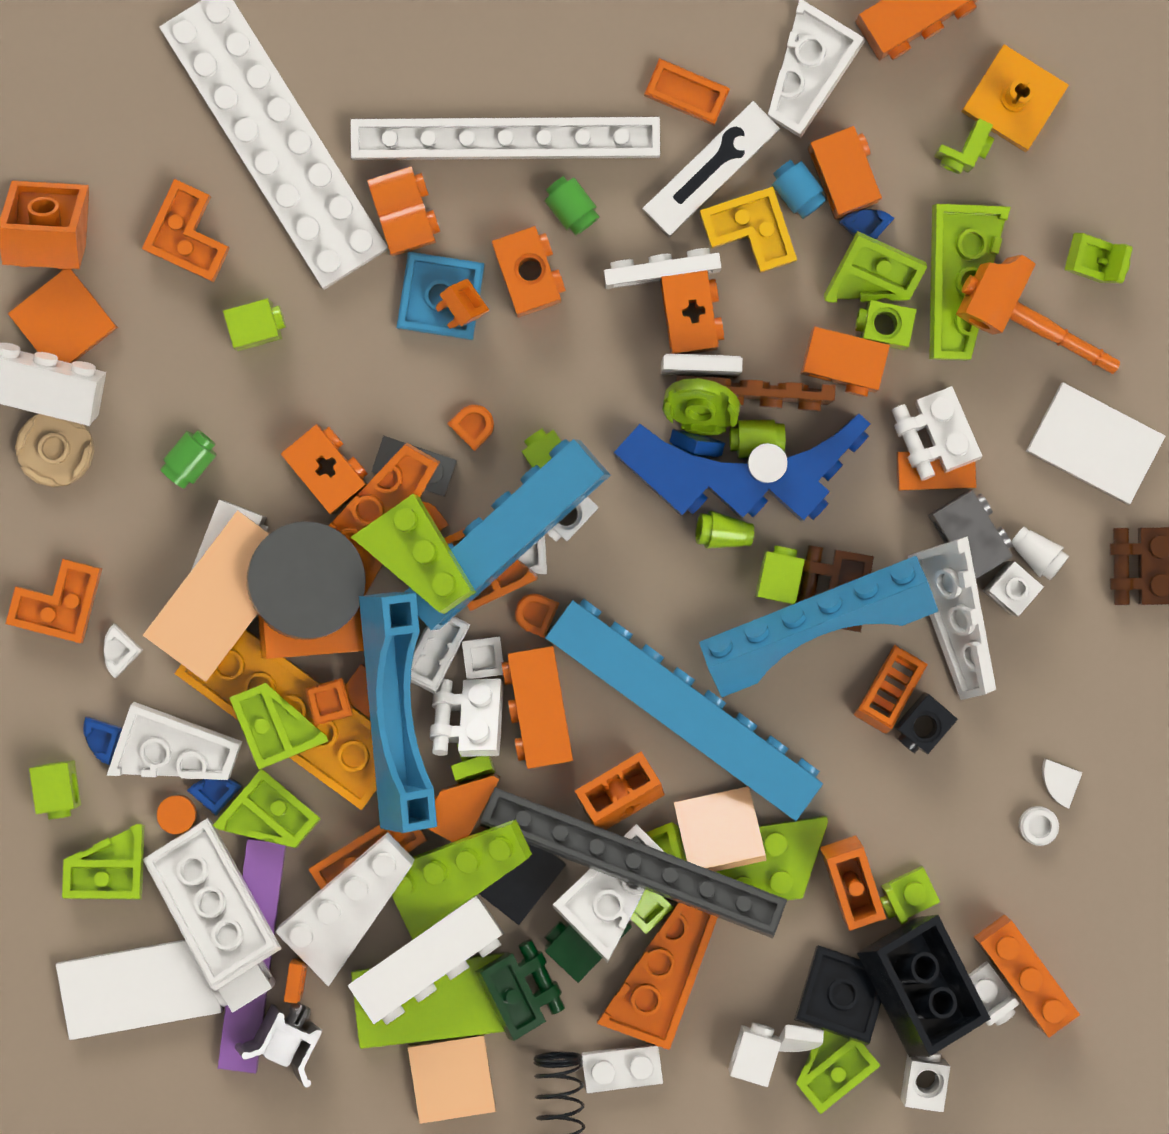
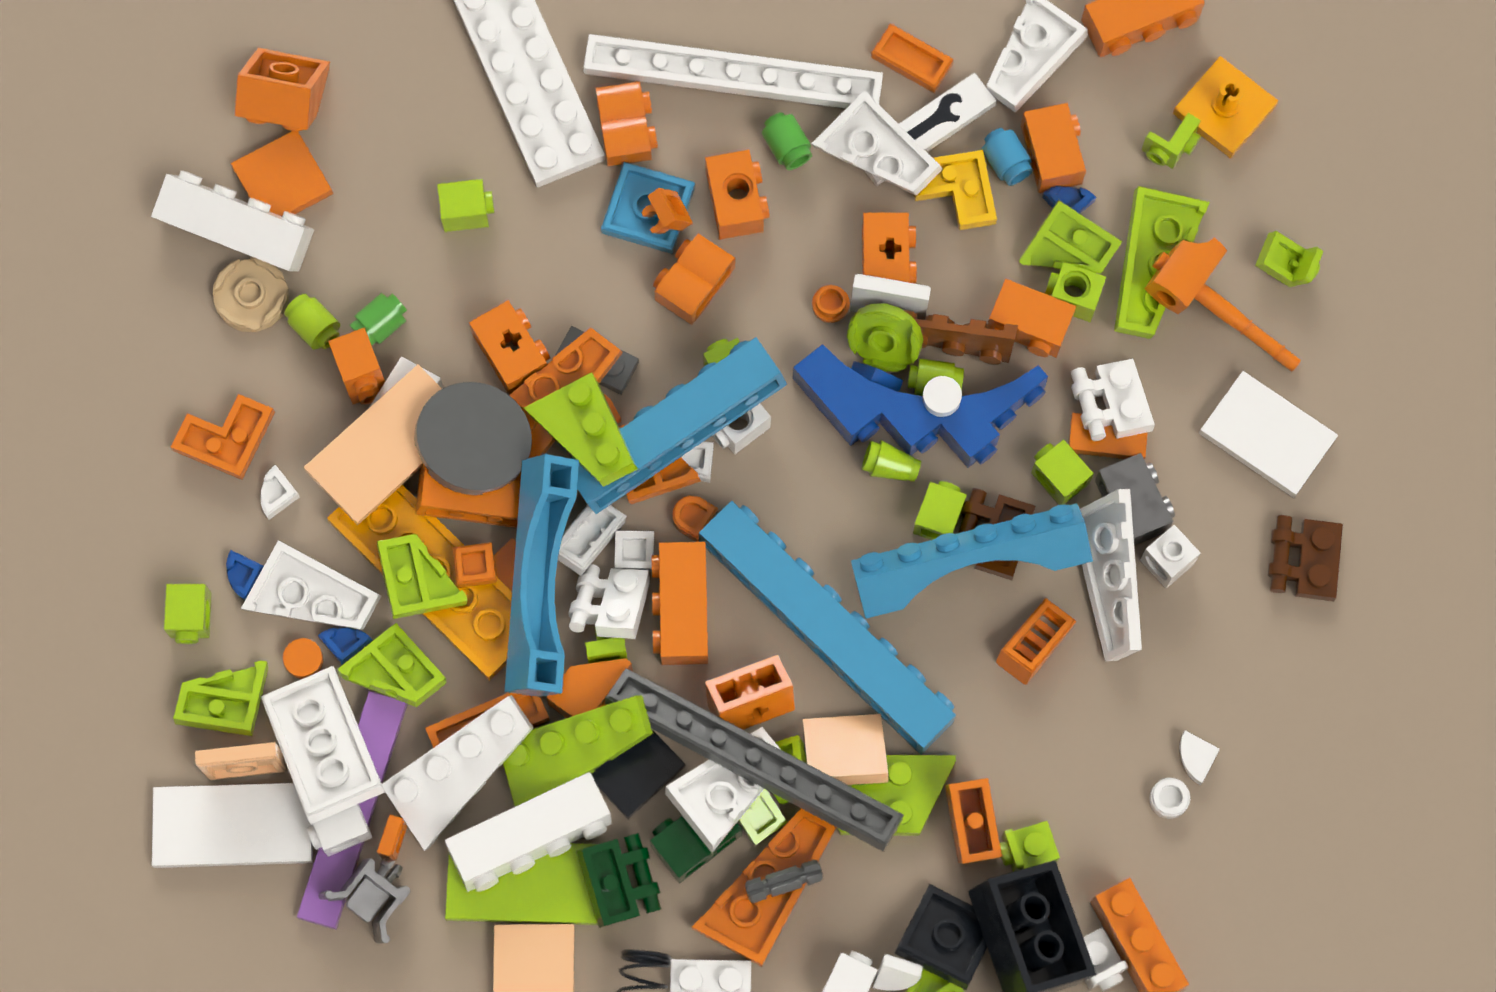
camera: 10 degrees right, 15 degrees down
(122, 471) = (312, 321): none -> lime brick
(134, 934) = (241, 761): none -> light nougat tile
(175, 235) = (405, 117): orange plate -> none
(178, 518) = (358, 366): none -> orange brick
(473, 425) = (660, 330): orange tile -> none
(498, 368) = (693, 278): none -> orange brick
(626, 273) = (836, 211): white plate -> none
(640, 372) = (830, 303): none -> orange plate
(666, 199) = (878, 145): none -> white wing
(679, 969) = (783, 881): none -> dark grey axle
(894, 516) = (1061, 471): none -> lime brick
(941, 719) = (1076, 663): black brick -> none
(1039, 553) = (1201, 528): white cone -> none

